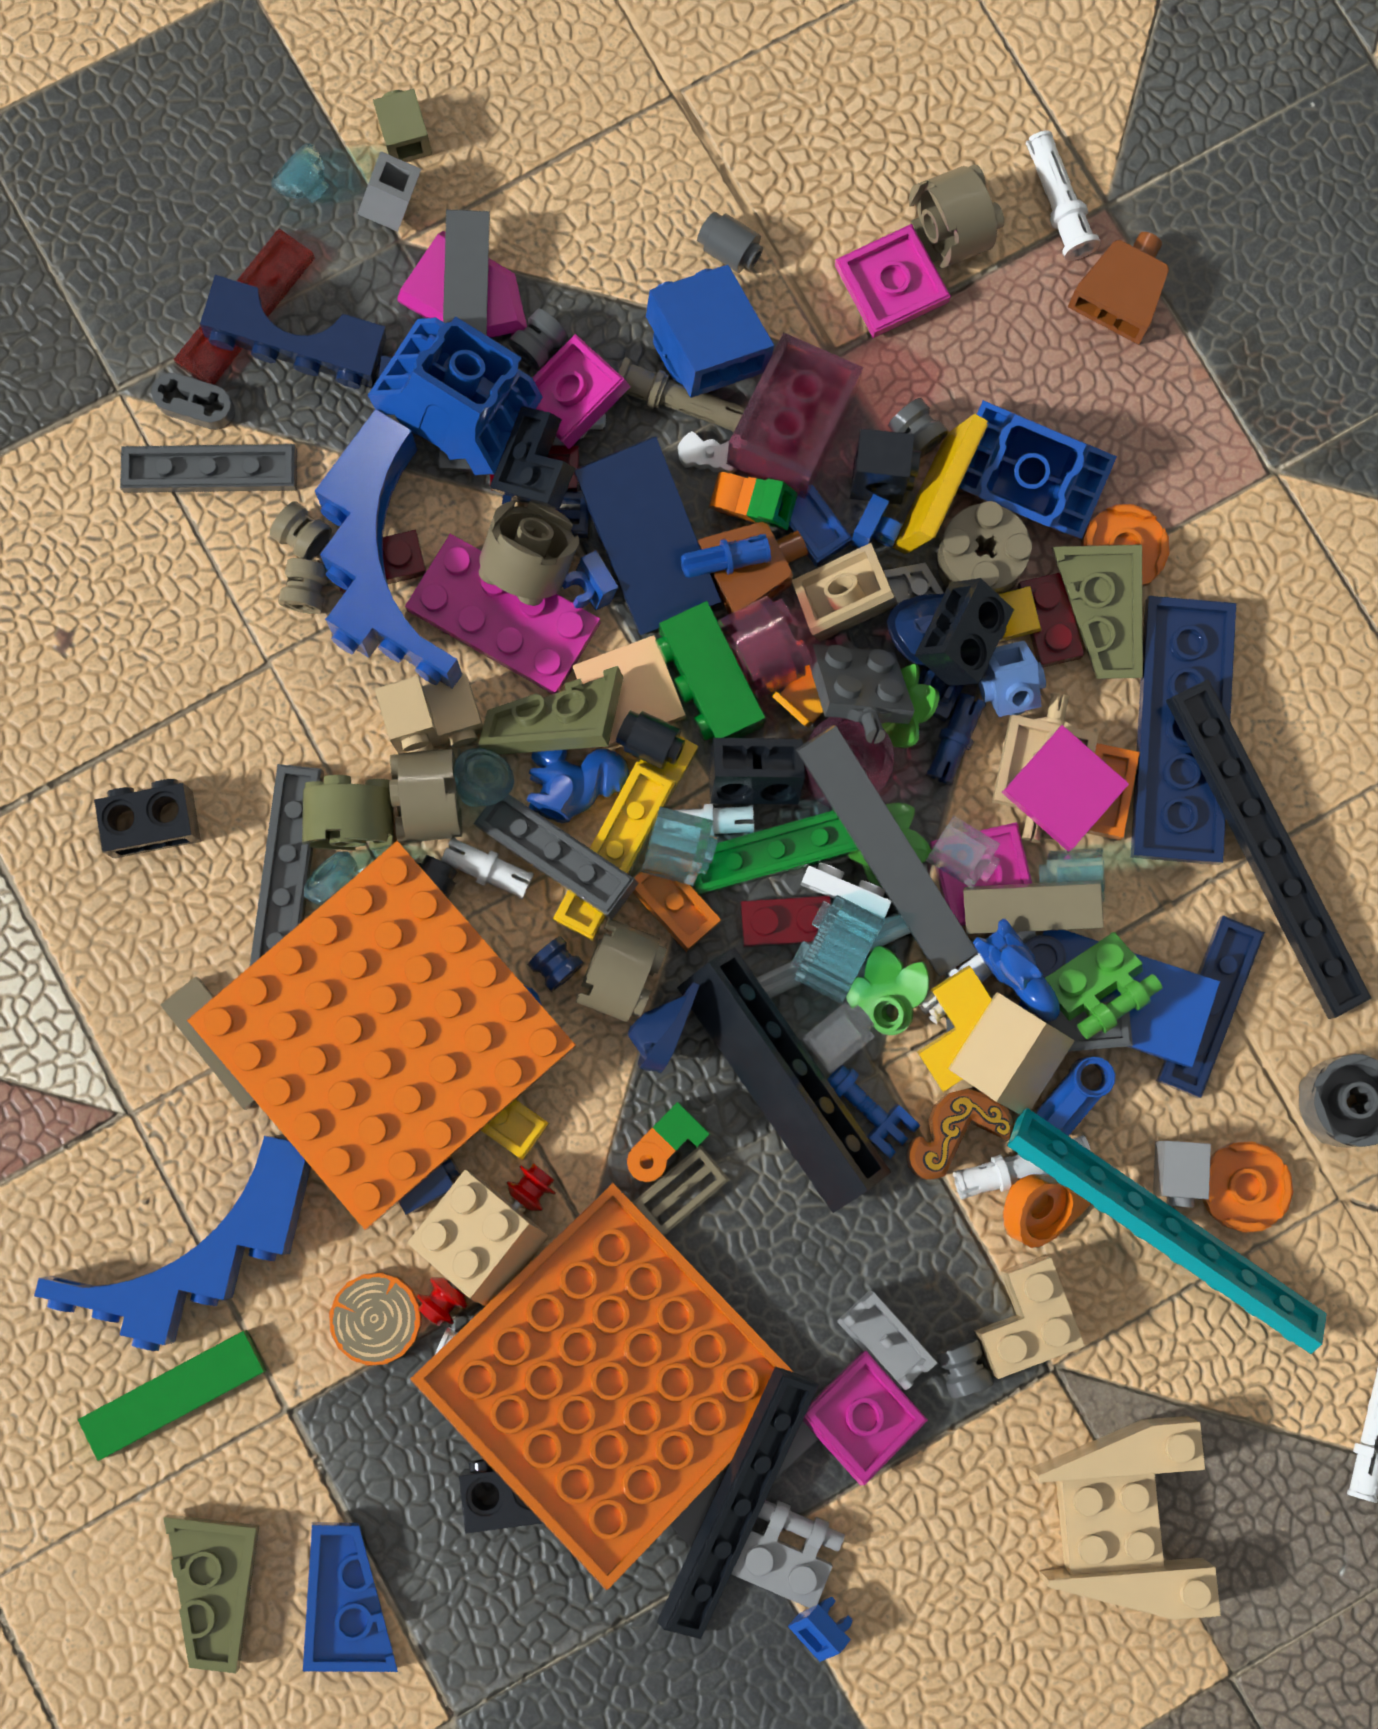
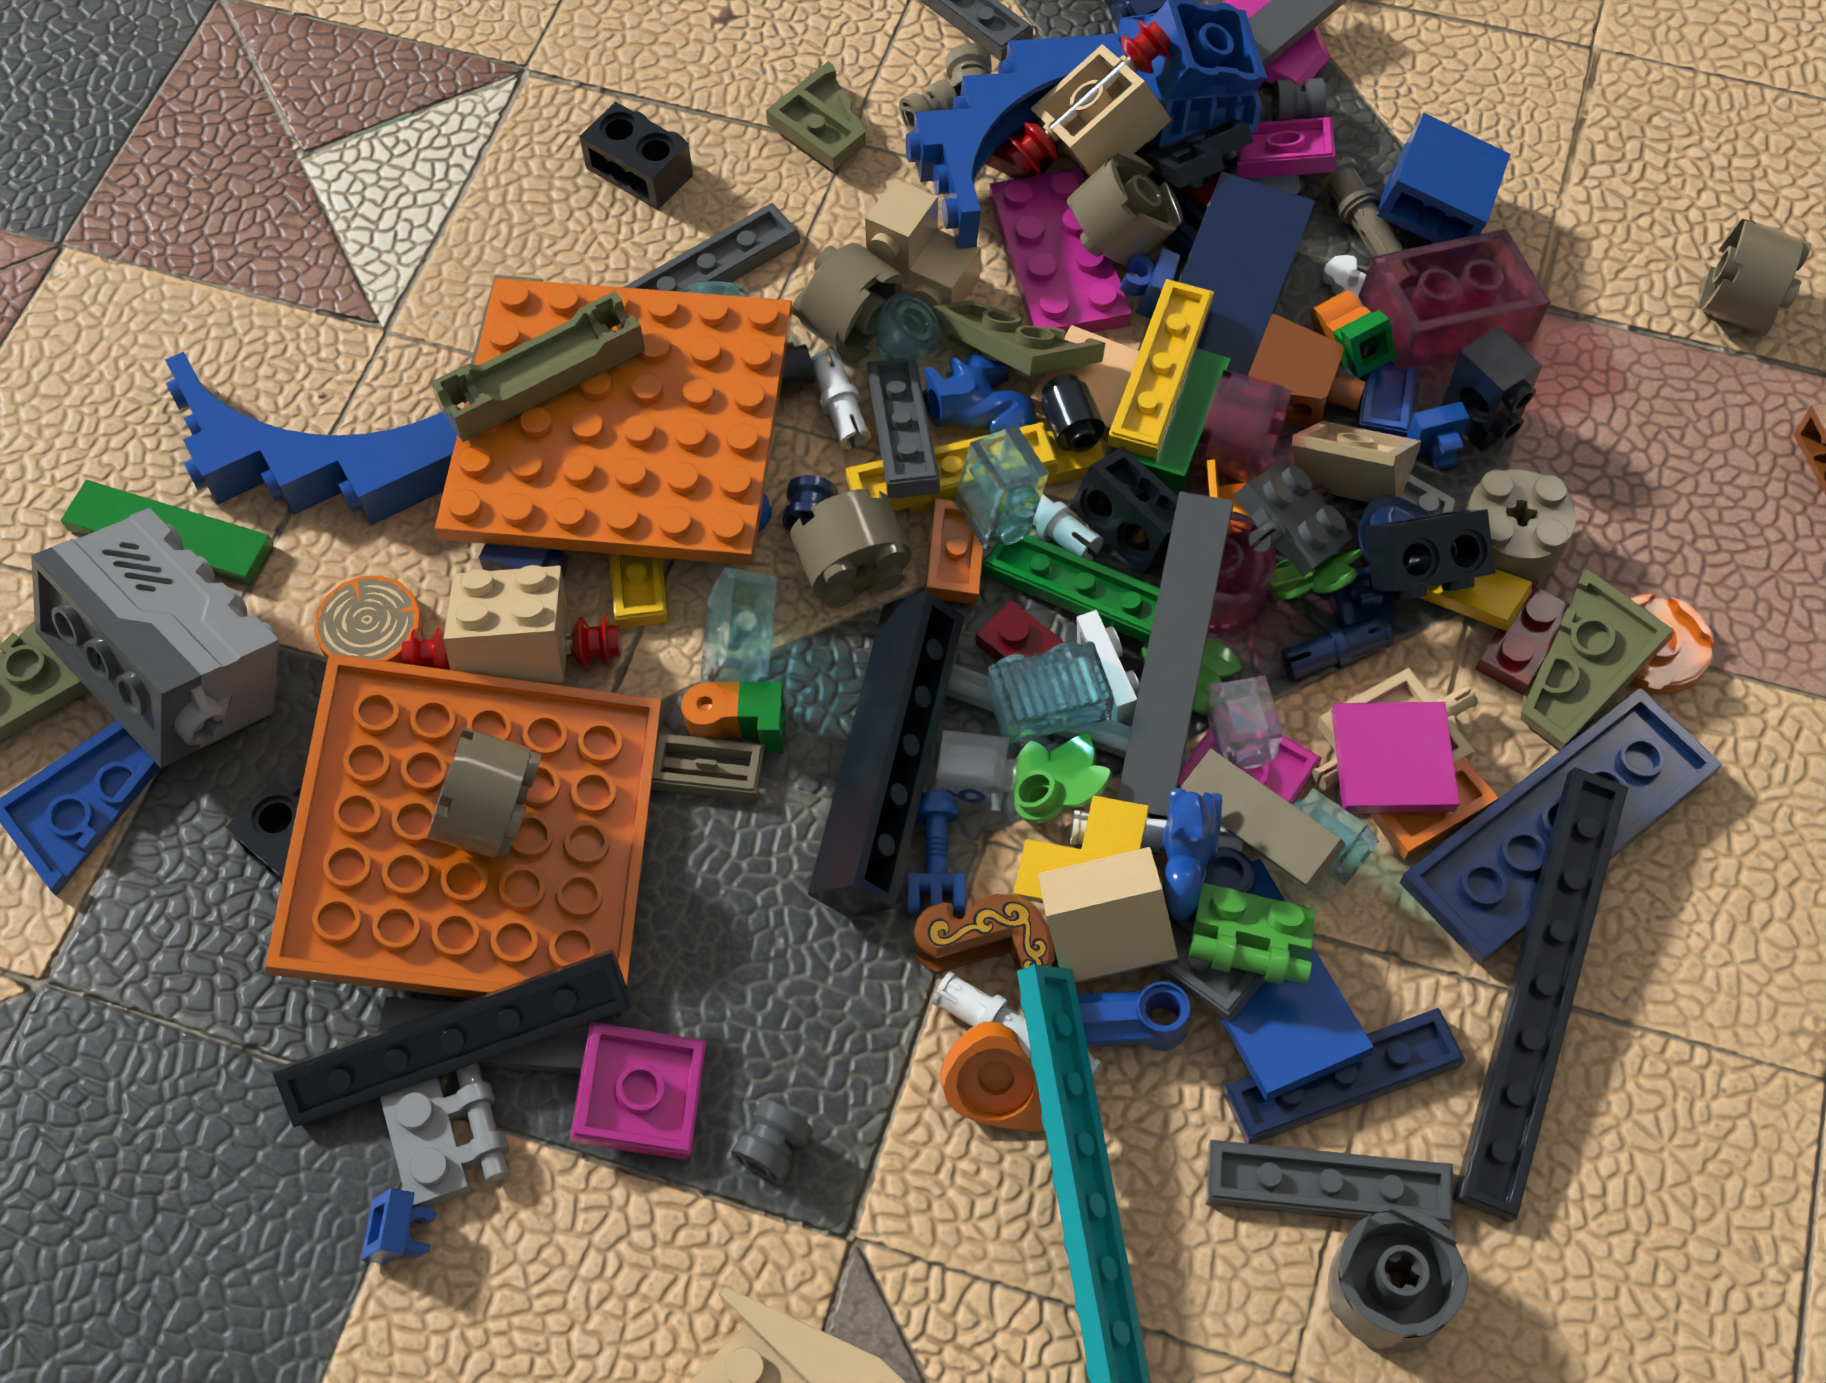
camera: 50 degrees right, 20 degrees down
(235, 666) = (819, 118): none -> olive wing
(280, 1475) = (155, 635): none -> piece
(308, 1061) = (539, 368): none -> olive piece
(347, 814) = (773, 253): olive brick -> none
(434, 491) = (1098, 107): none -> tan brick
(612, 1366) = (484, 794): none -> dark tan brick
(615, 1097) = (738, 627): none -> clear light blue brick
(659, 1031) = (835, 620): dark blue piece -> none
(675, 653) = (1160, 369): none -> yellow tile
(726, 556) = (1281, 333): blue axle -> none
(730, 241) = (1532, 159): dark grey brick -> none
(886, 1340) = (734, 1049): light grey hinge -> none
(892, 280) = (1647, 289): dark pink plate -> none
(916, 420) = (1556, 409): dark grey wheel -> none
(940, 484) = (1529, 440): yellow tile -> none
(1013, 680) = (1449, 626): medium blue brick -> none
(1037, 471) = (1635, 511): blue slope -> none
(1042, 1321) = (876, 1174): tan brick -> none
(1181, 1172) = (1160, 1180): light grey brick -> none
(1248, 1187) = (1210, 1266): orange tile -> none
(1261, 1076) = (1325, 1182): none -> dark grey tile

